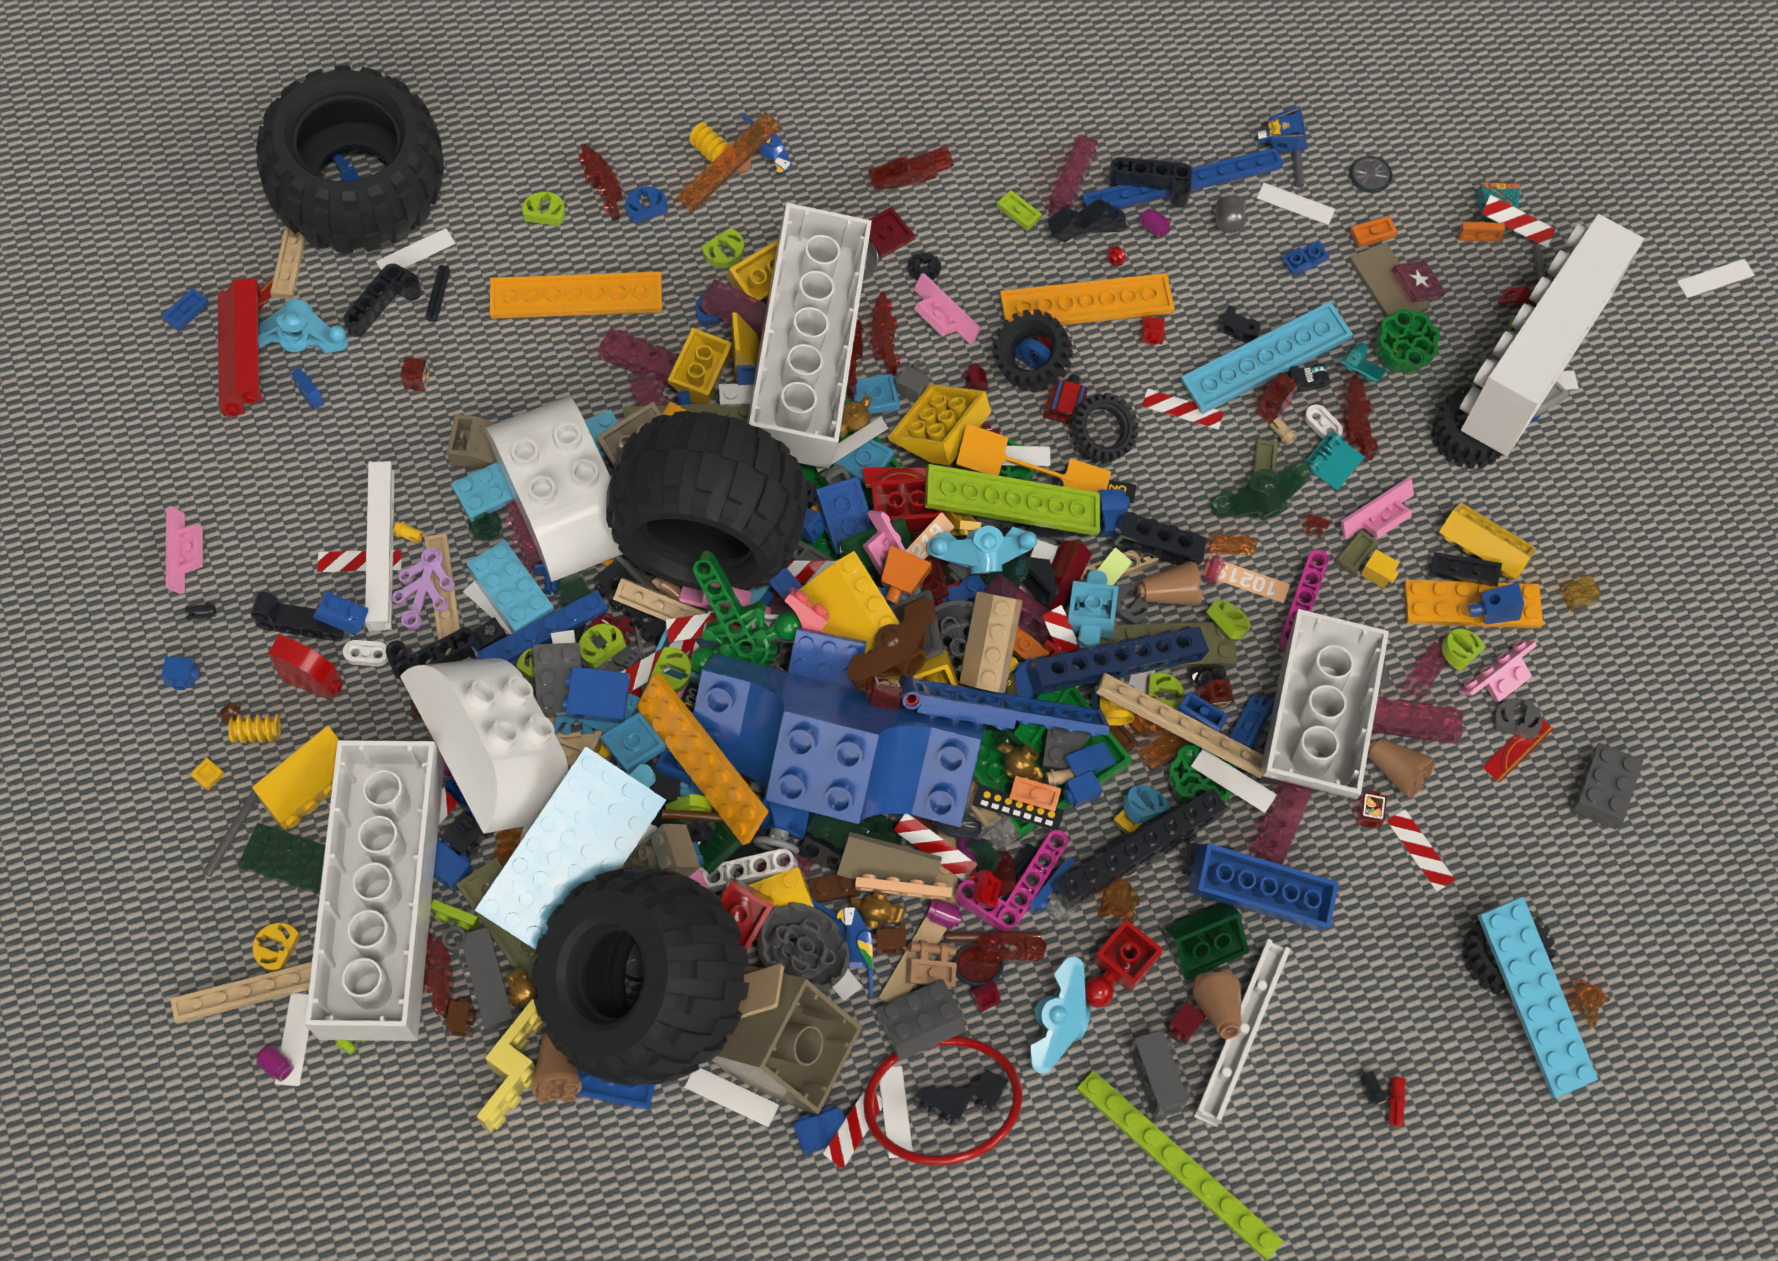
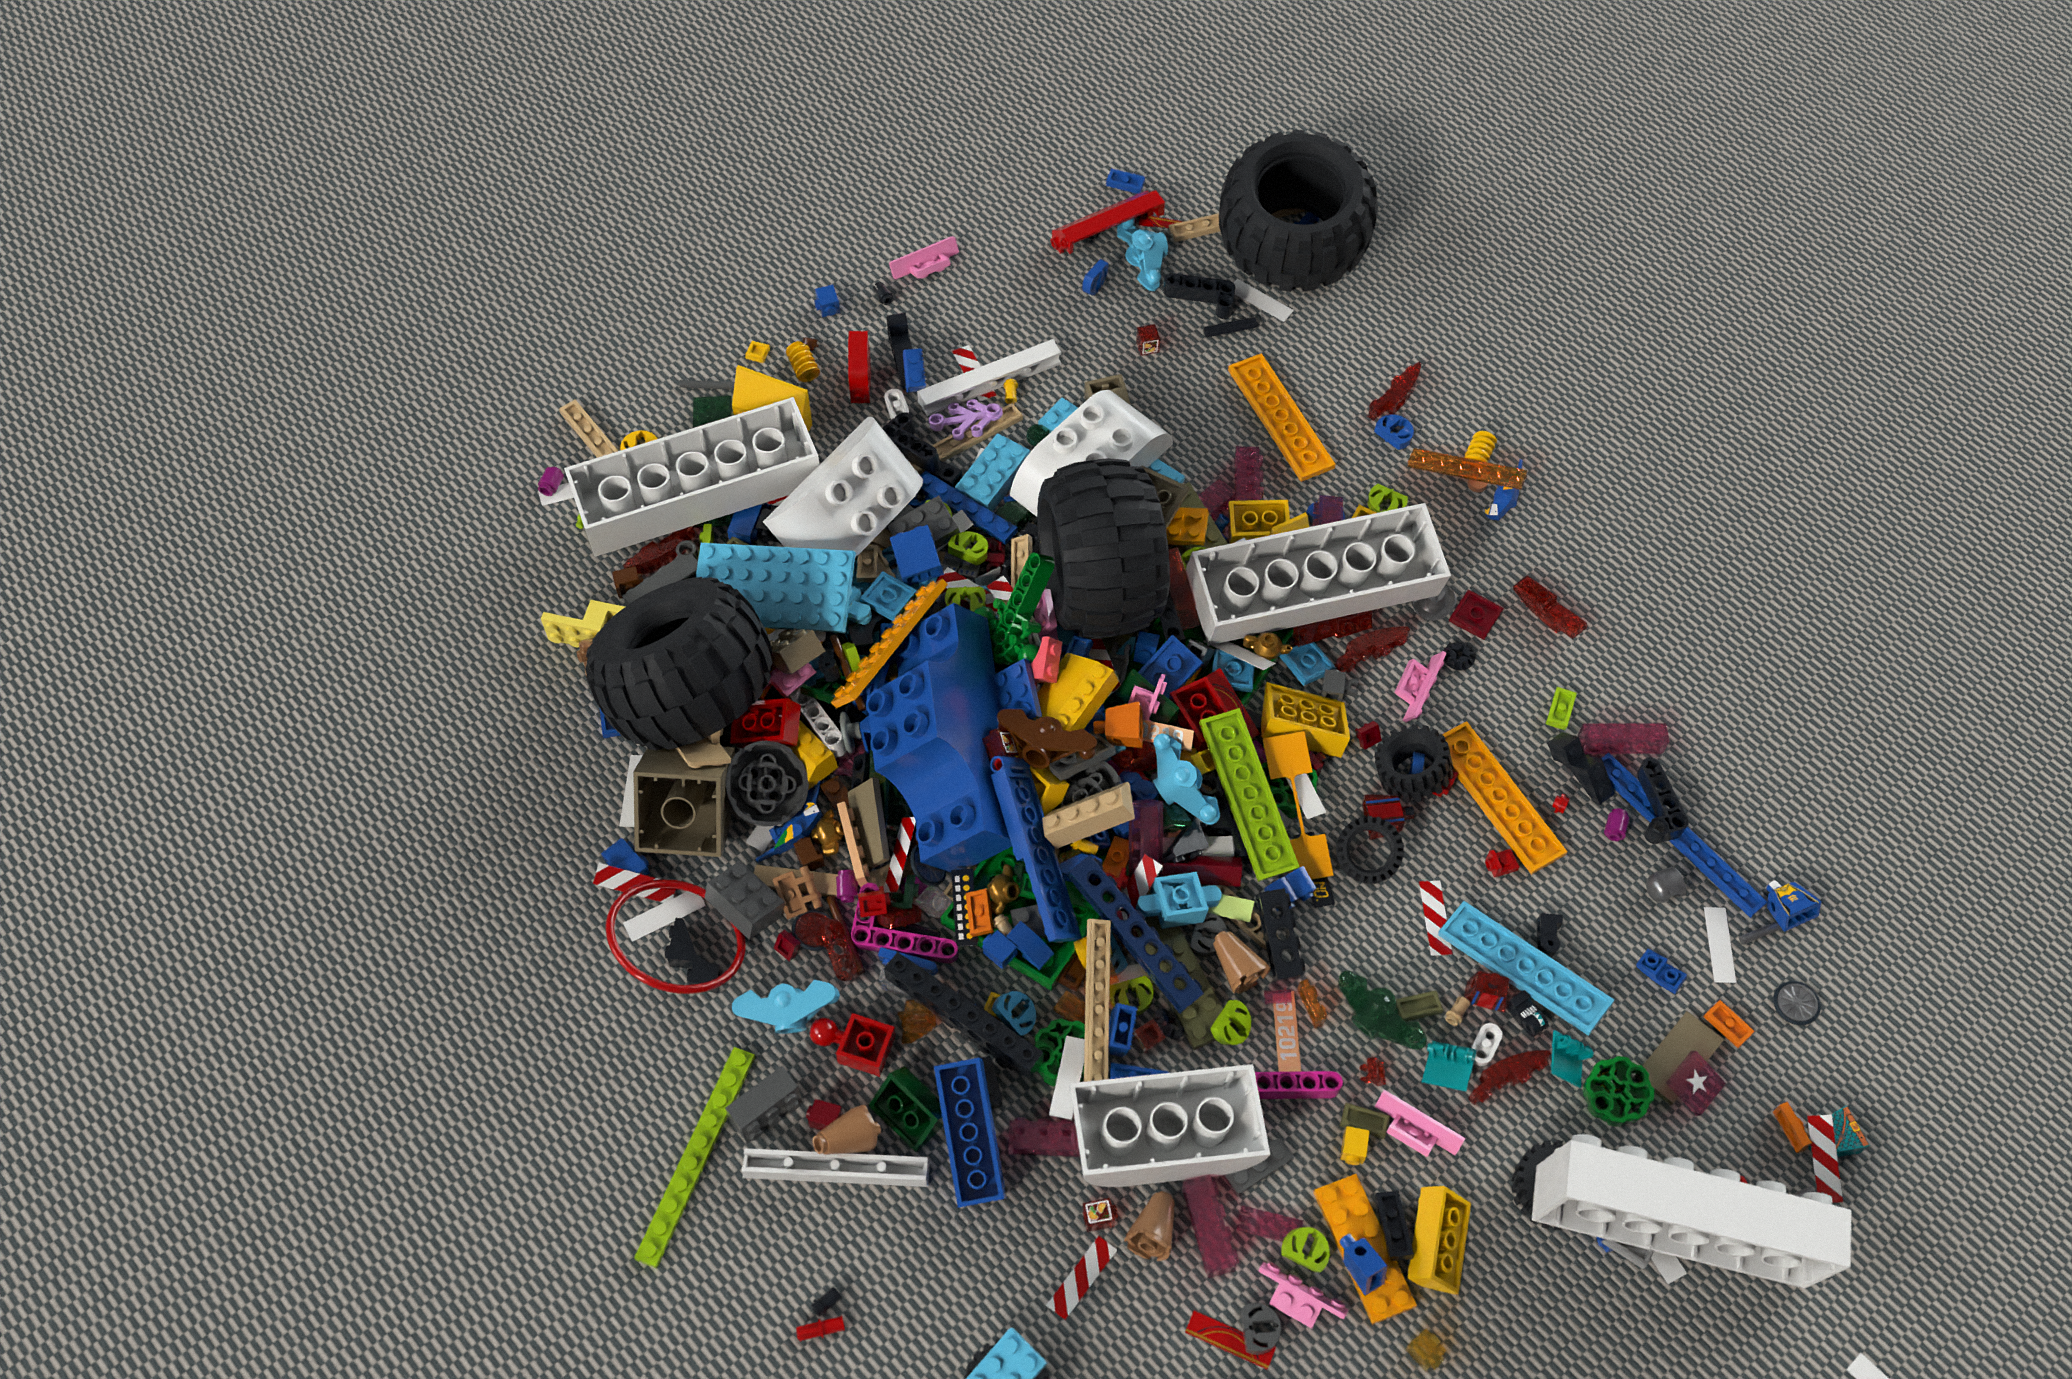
camera: 70 degrees right, 5 degrees down
(554, 215) = (1344, 356): lime piece -> none

